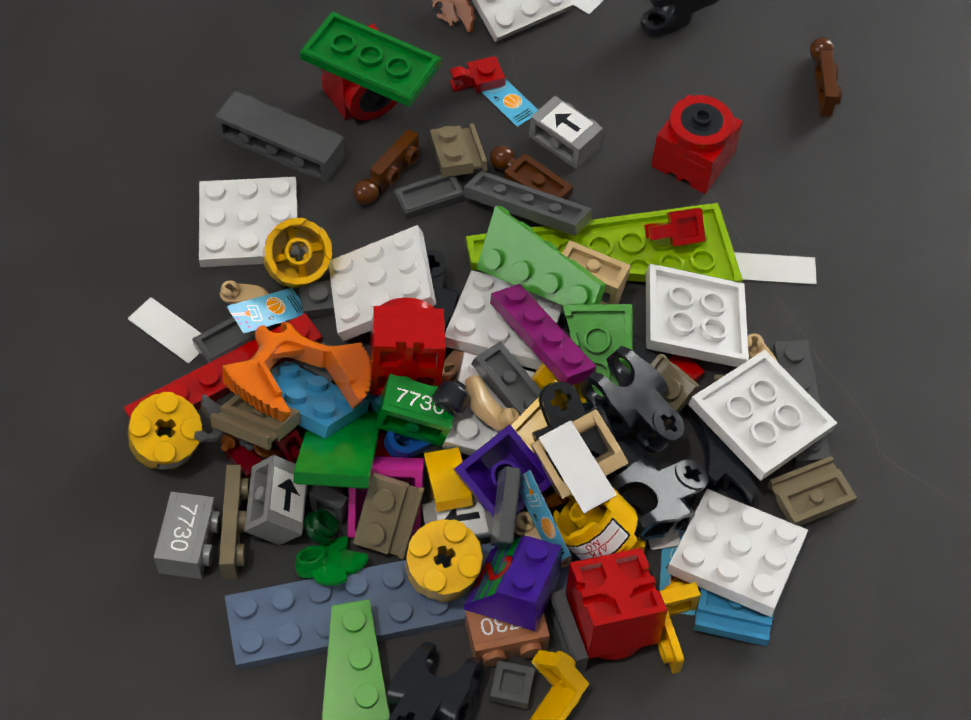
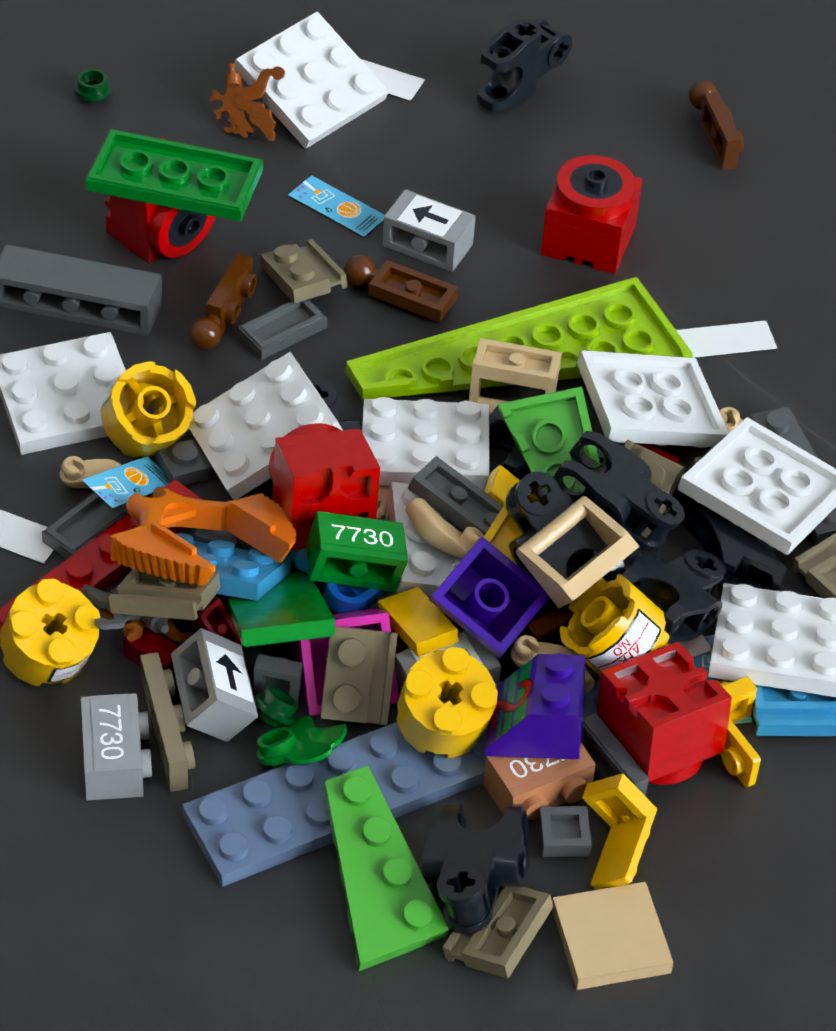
camera: 15 degrees left, 10 degrees down
(452, 397) = (398, 525): black piece -> none
(481, 74) = (304, 184): red plate -> none
(505, 507) = (505, 626): dark grey tile -> none
(524, 258) = (442, 369): bright green wing -> none
(528, 203) = (409, 311): dark grey plate -> none
(540, 513) = (544, 623): medium azure sticker -> none
(542, 334) = (477, 441): magenta plate -> none
(577, 466) = (581, 560): white sticker -> none
(682, 227) = (605, 306): red plate -> none

